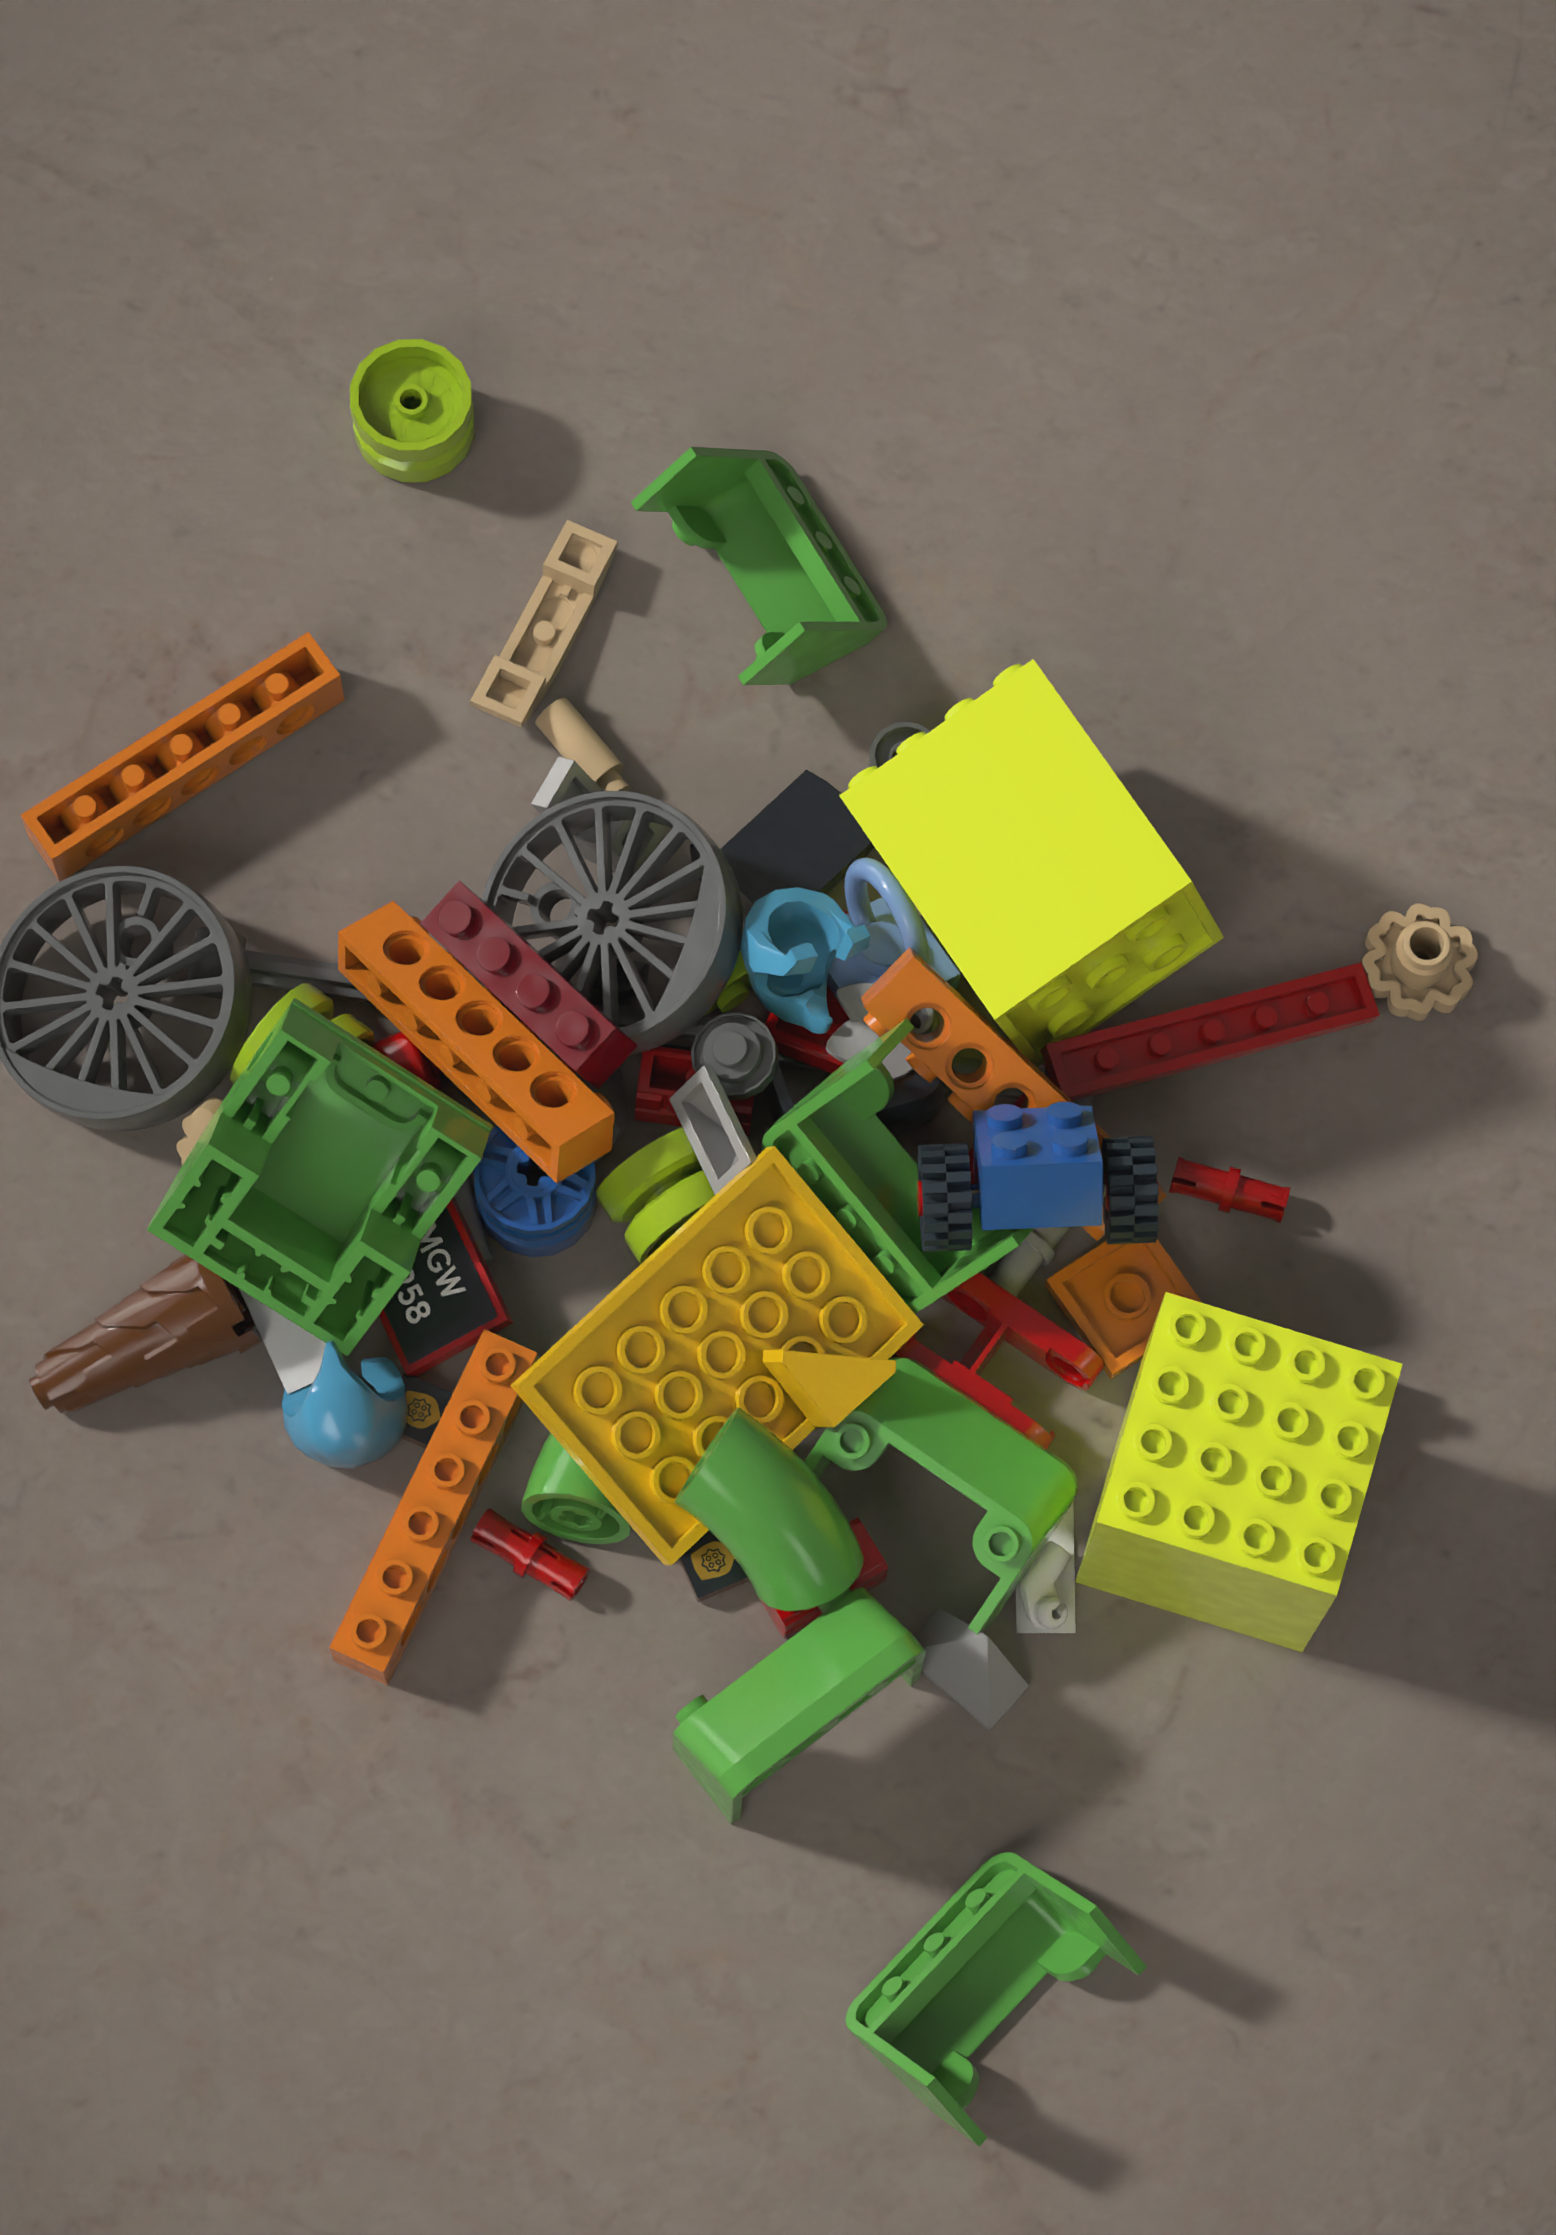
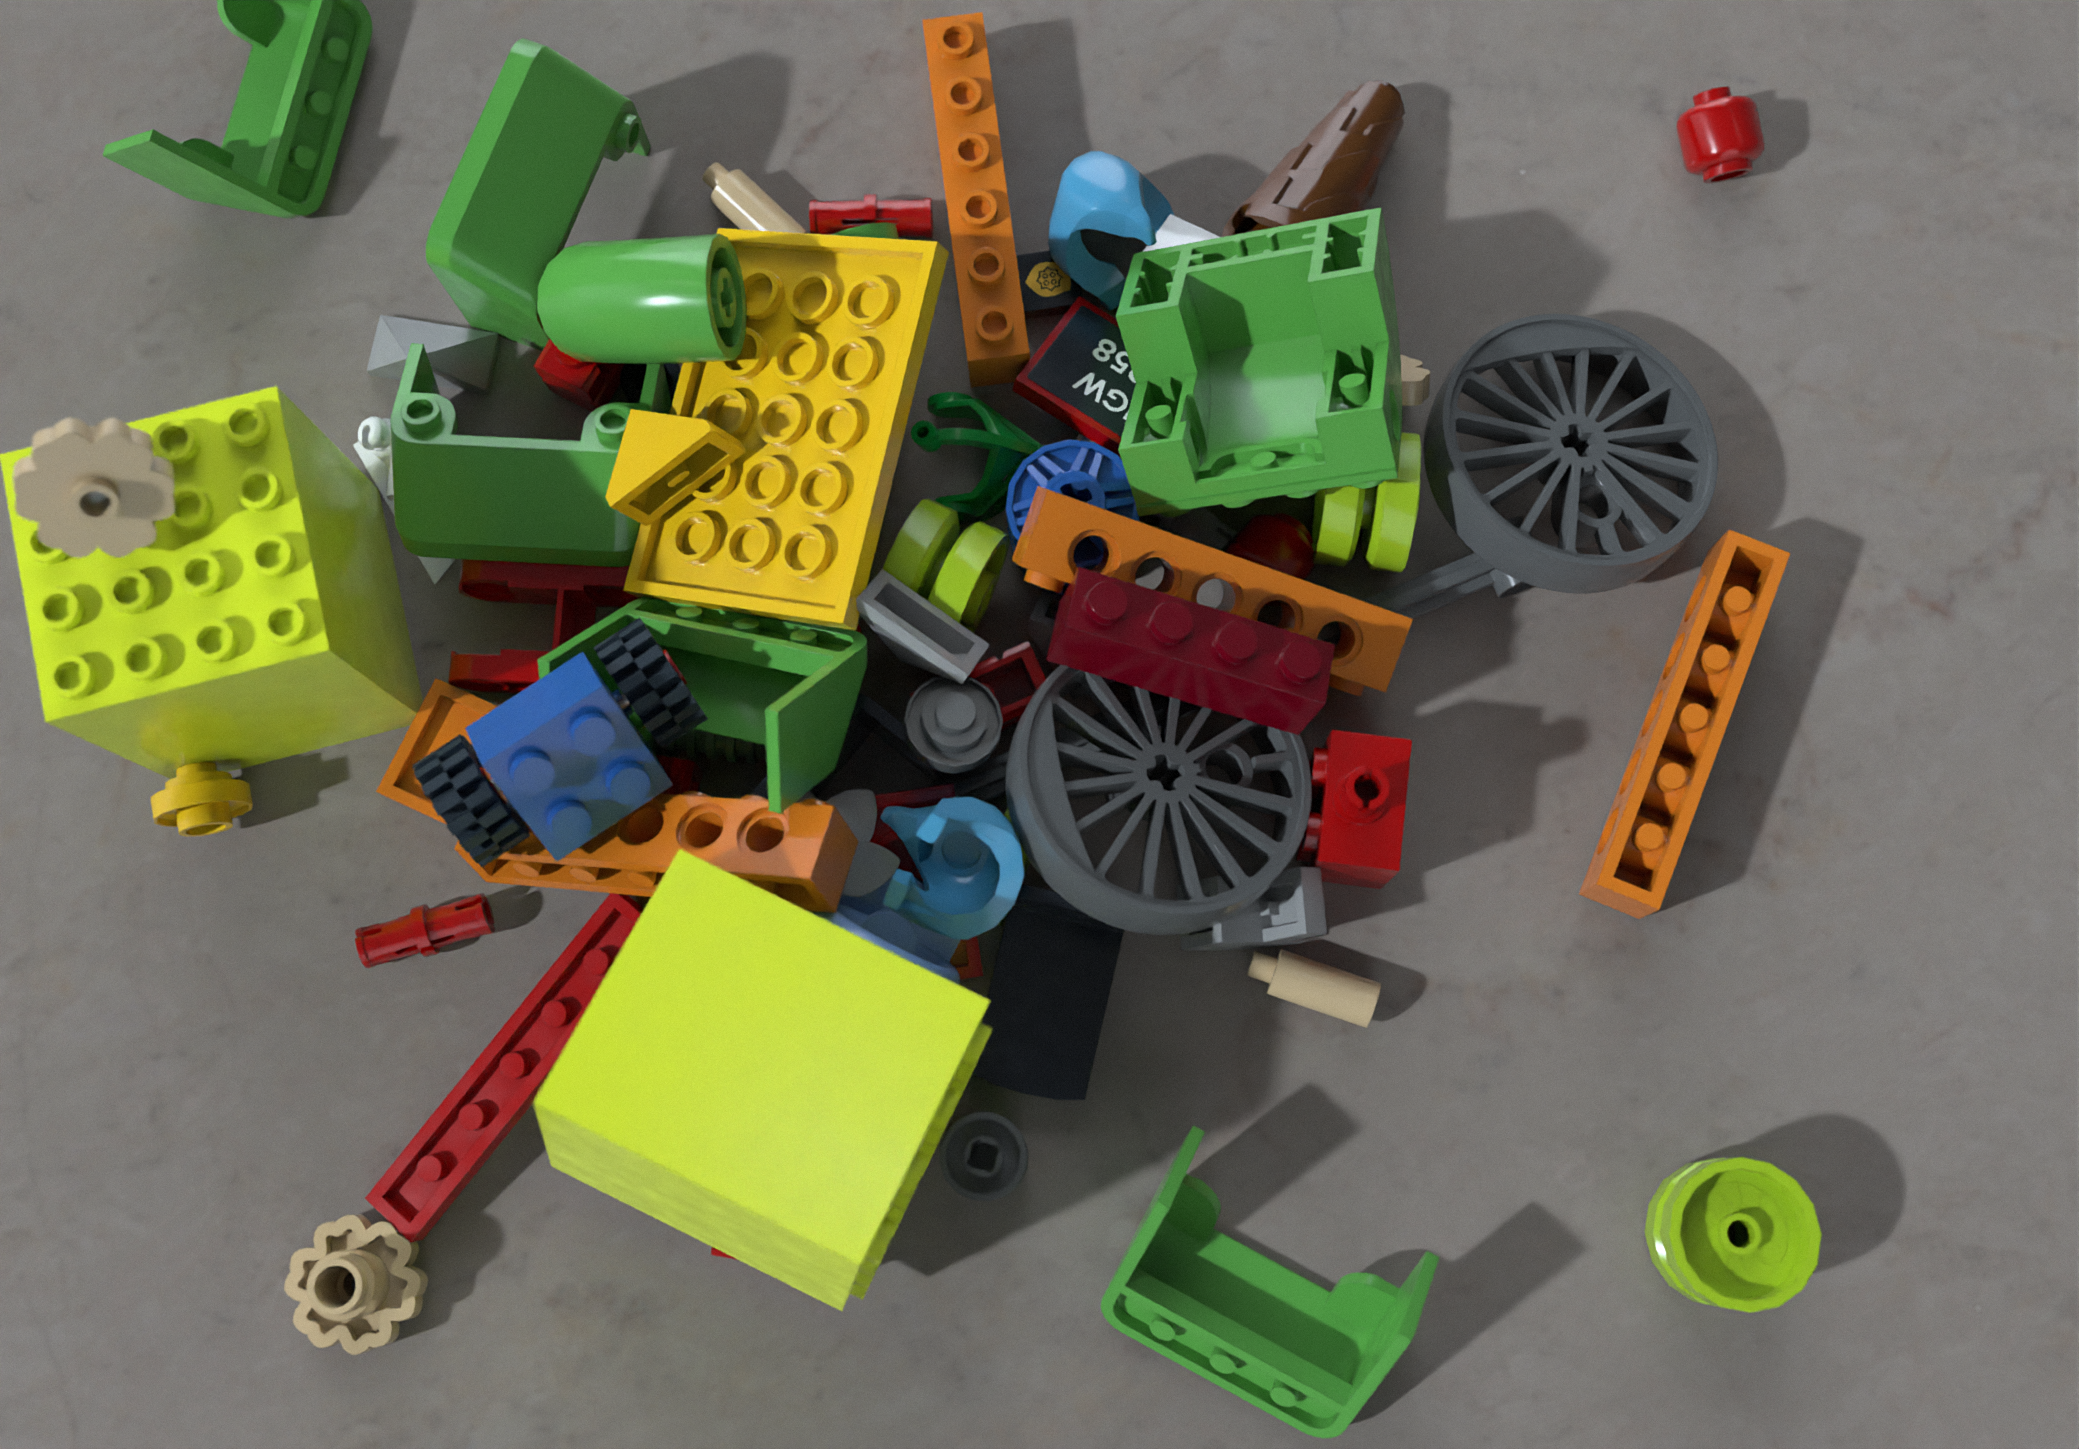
camera: 155 degrees right, 5 degrees up
(468, 830) = (1357, 808): none -> red brick
(546, 1272) = (1006, 448): none -> green helmet
(547, 626) = (1437, 1088): tan slope -> none
(623, 1617) = (746, 202): none -> tan cylinder
(1266, 1482) = (94, 487): none -> tan plant

